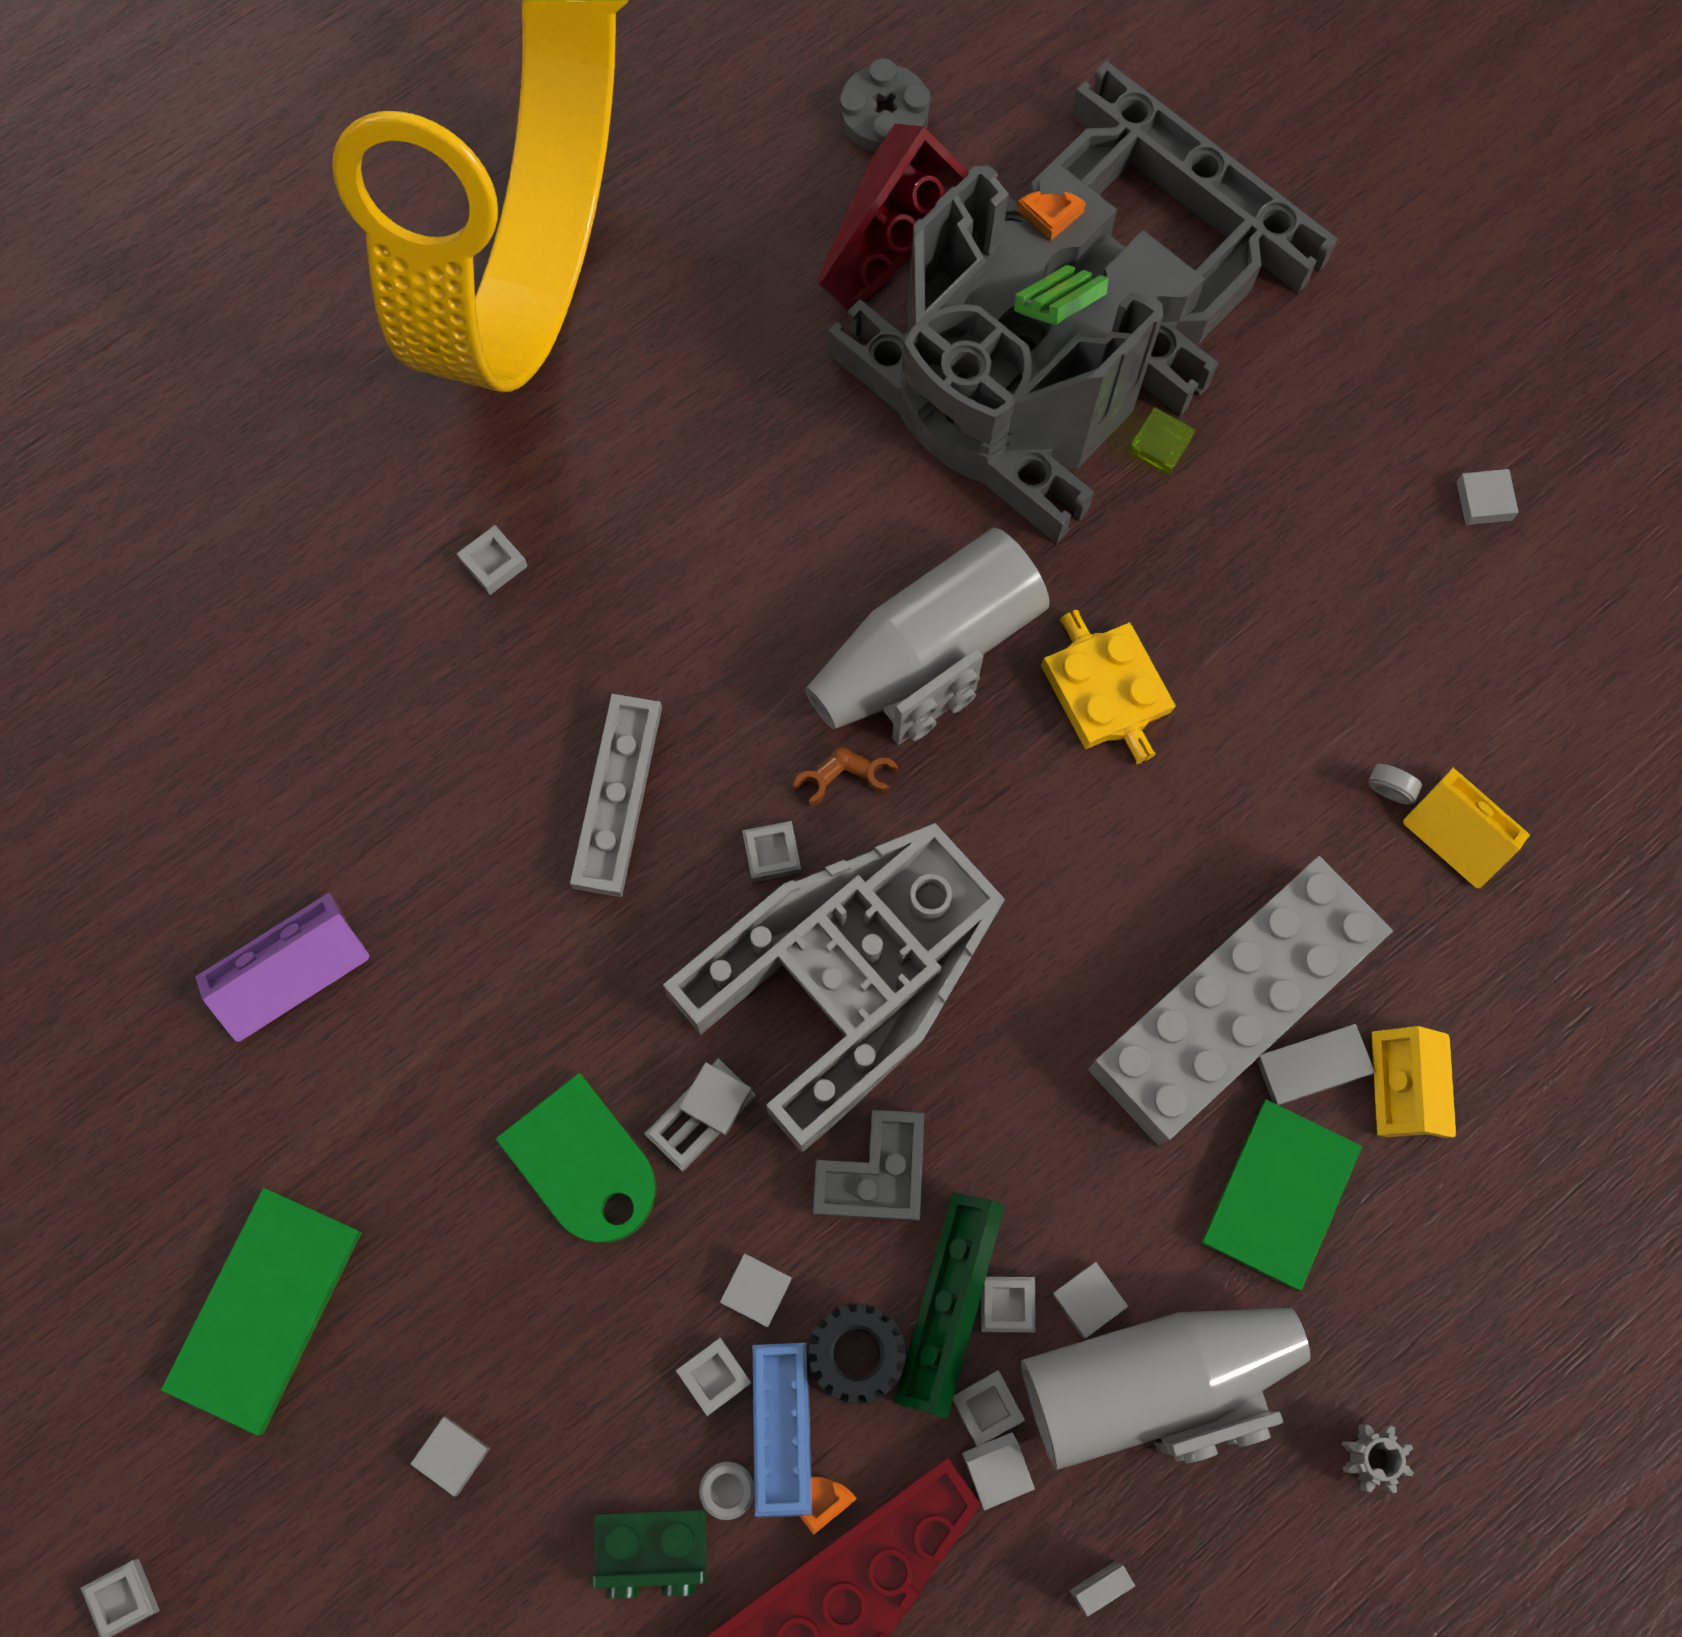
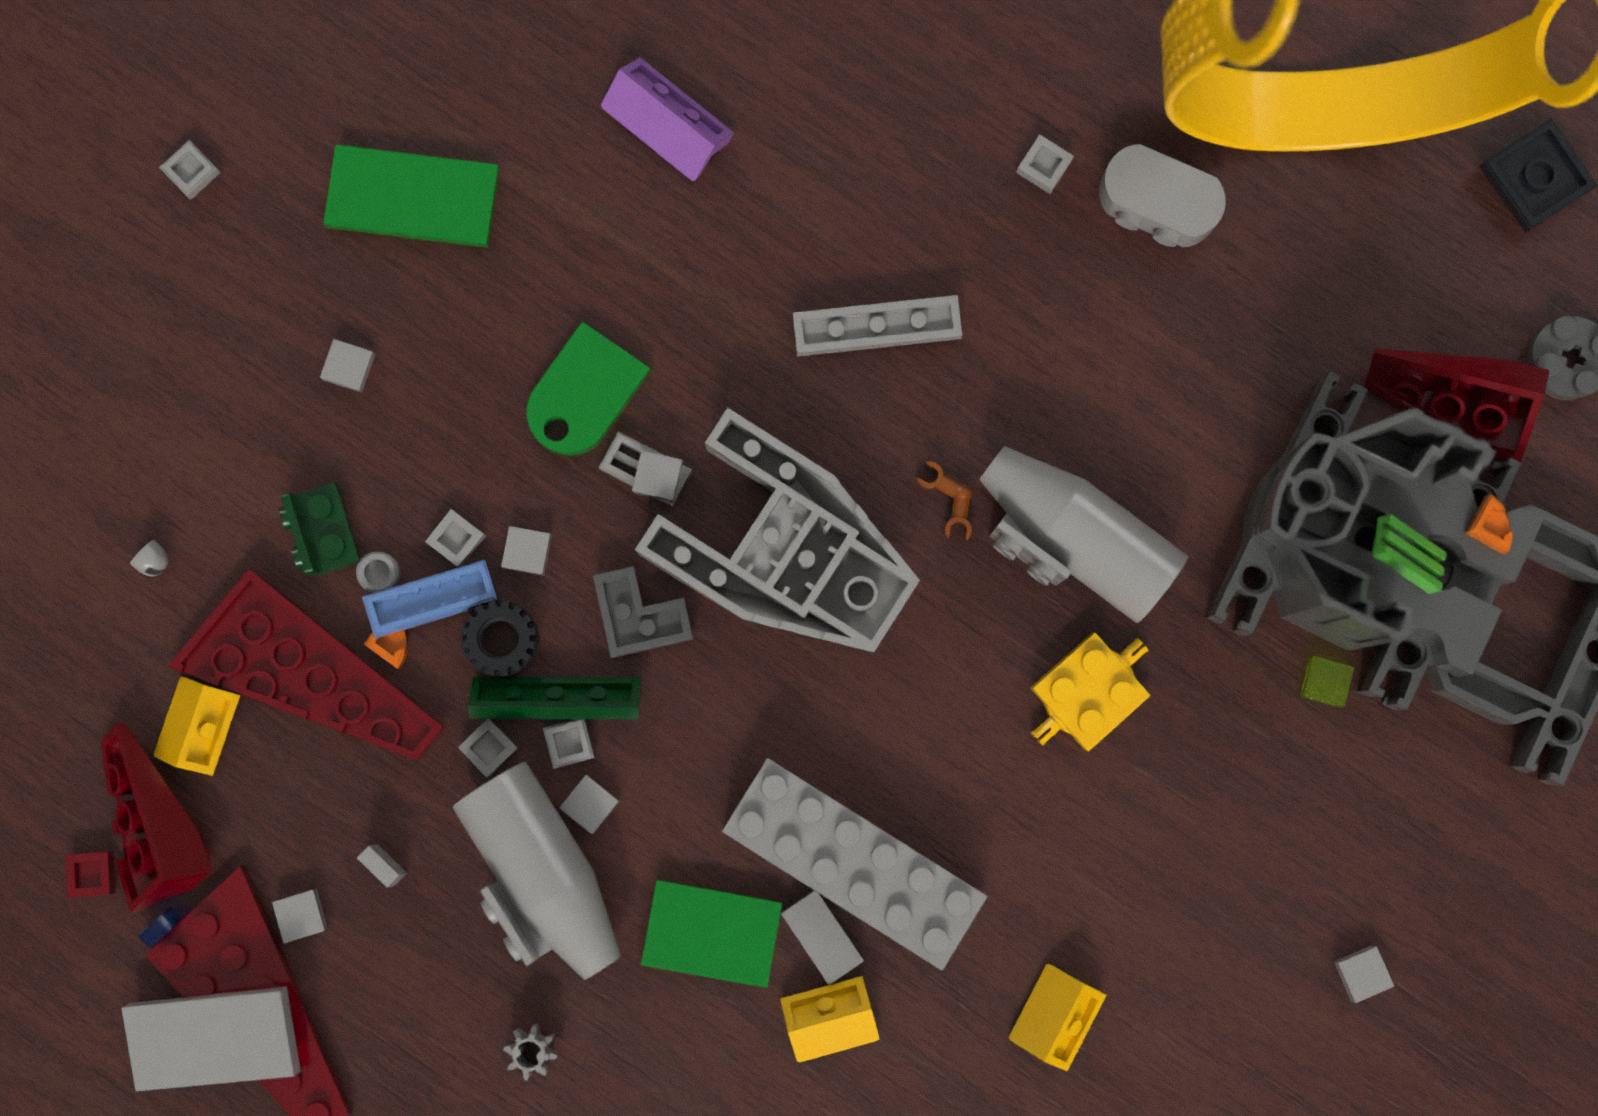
camera: 75 degrees right, 10 degrees up
(573, 447) = (1161, 196): none -> light grey brick
(681, 79) = (1538, 175): none -> black plate
(771, 851) = (868, 461): light grey tile -> none
(998, 1471) = (444, 767): light grey tile -> none
(1395, 784) = (1074, 948): light grey tile -> none

